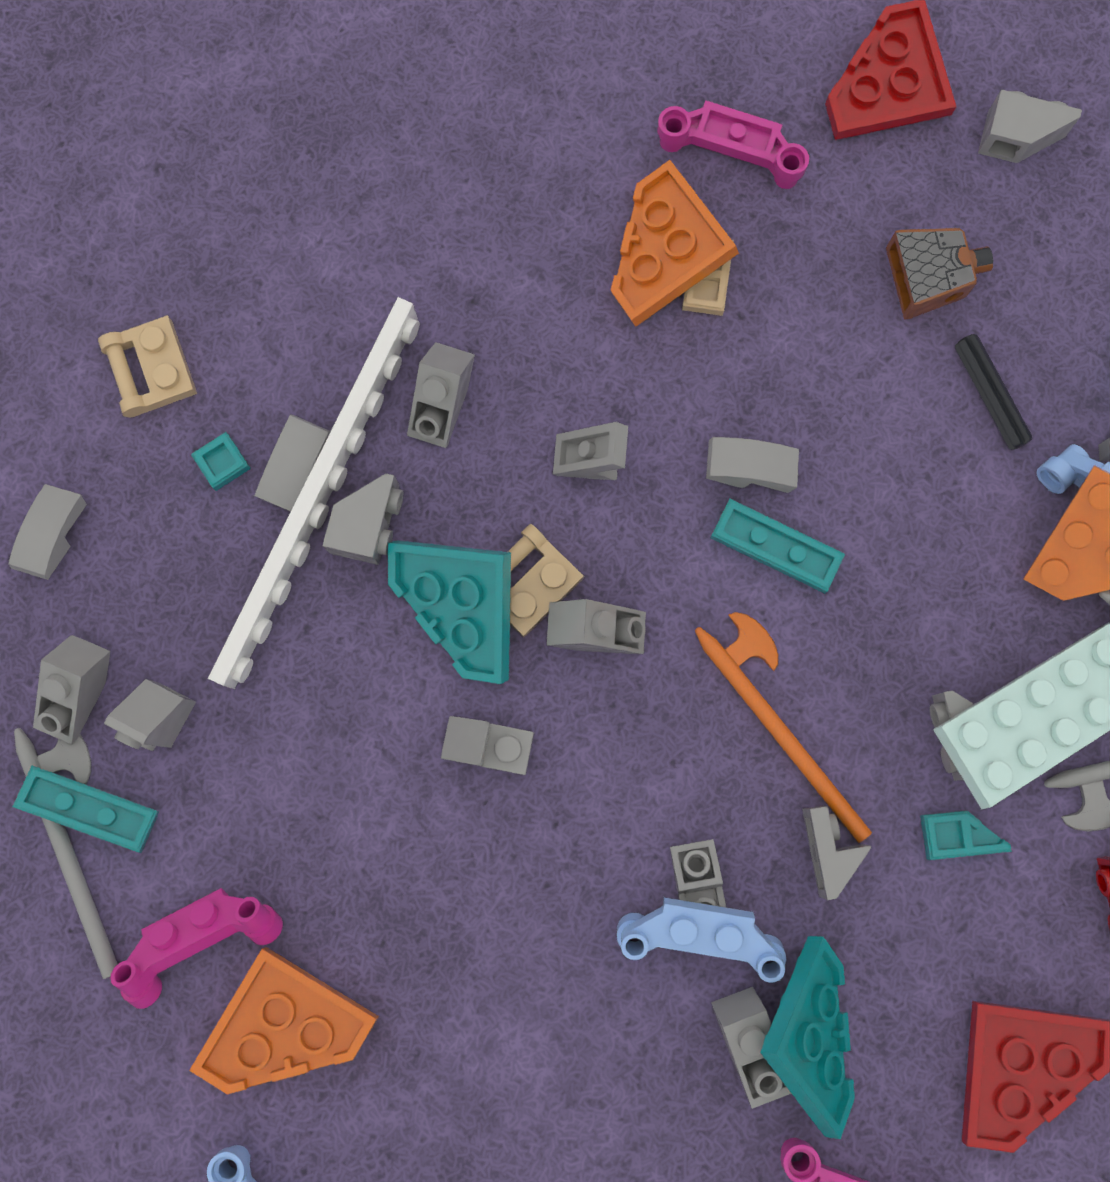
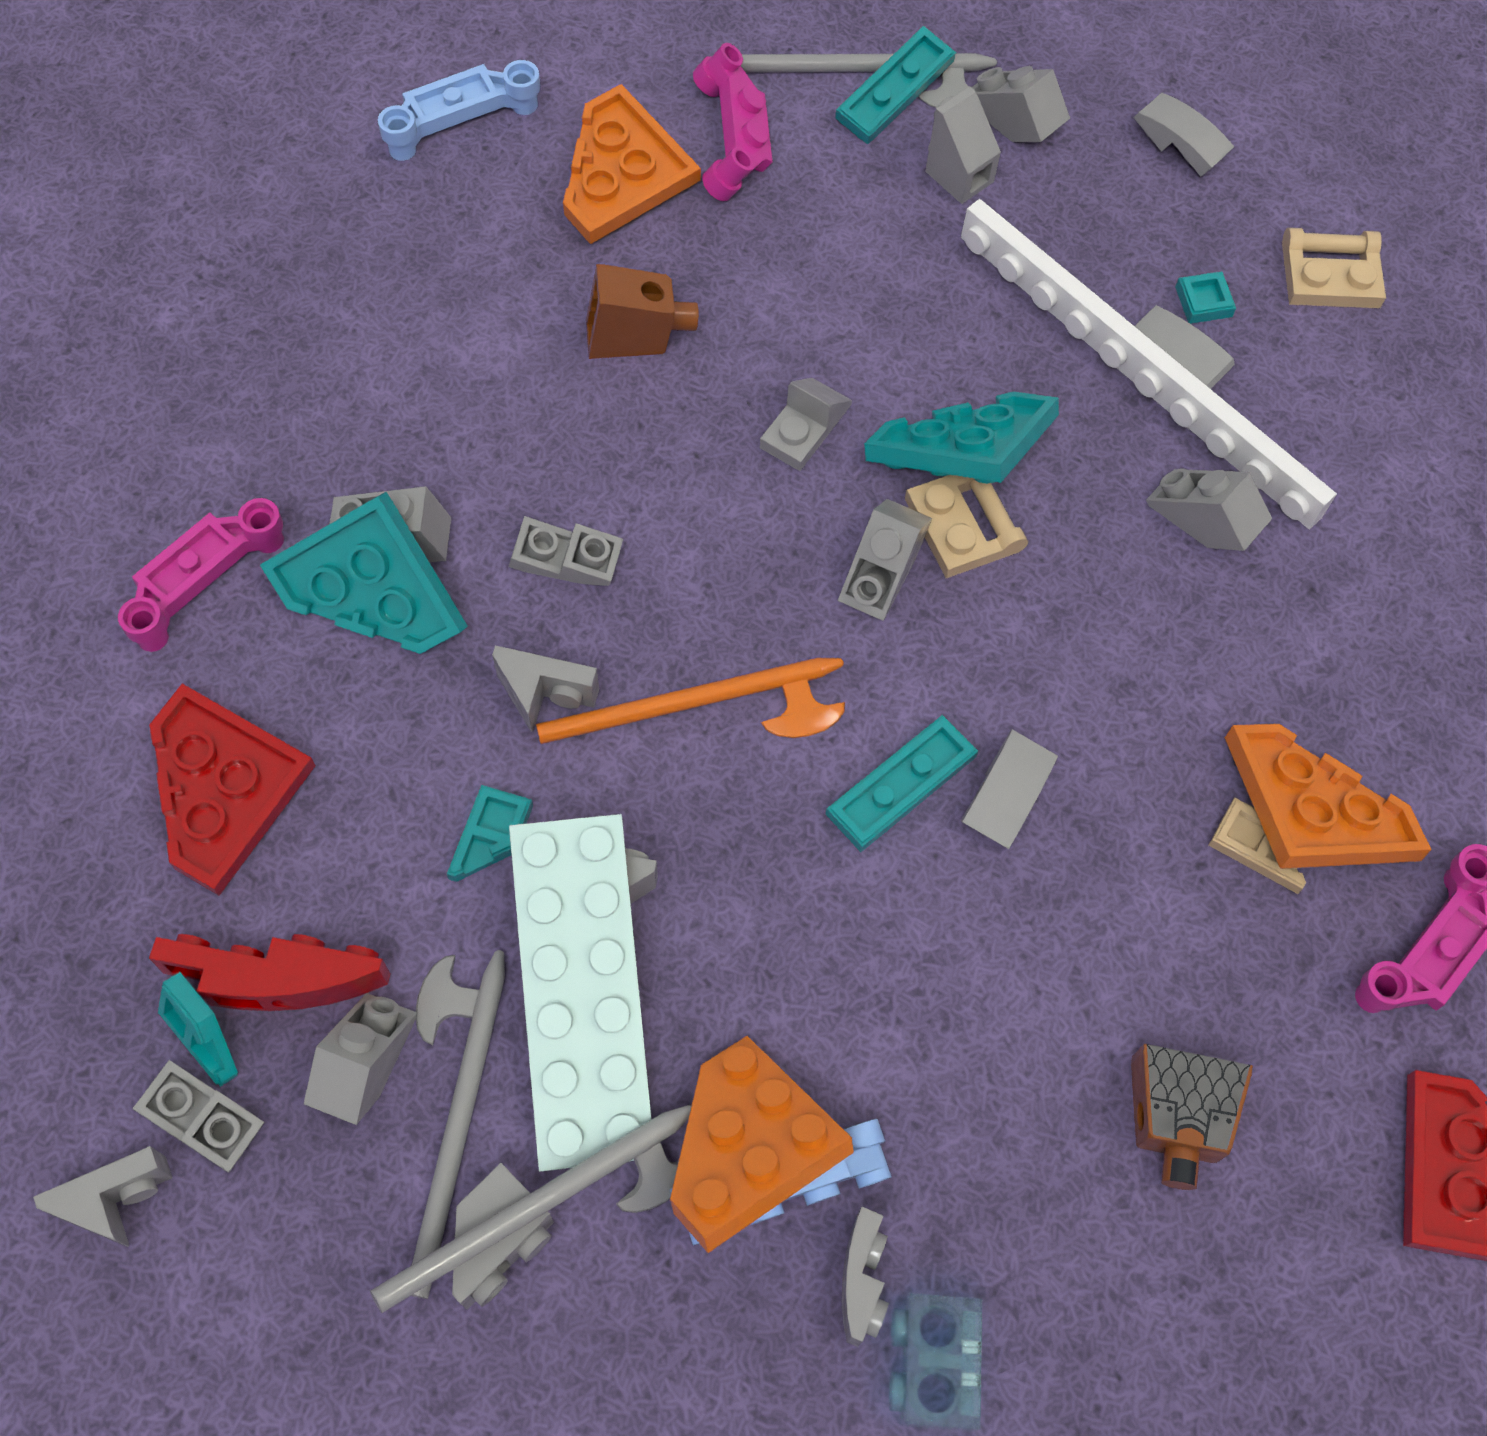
camera: 105 degrees right, 15 degrees down
(362, 521) = (1091, 389): light grey slope -> none
(462, 949) = (634, 313): none -> dark orange torso
(591, 452) = (1083, 632): light grey slope -> none
(703, 931) = (518, 532): light blue plate -> none
(993, 392) = (997, 1115): black axle -> none
(1024, 125) = (1356, 1325): light grey slope -> none

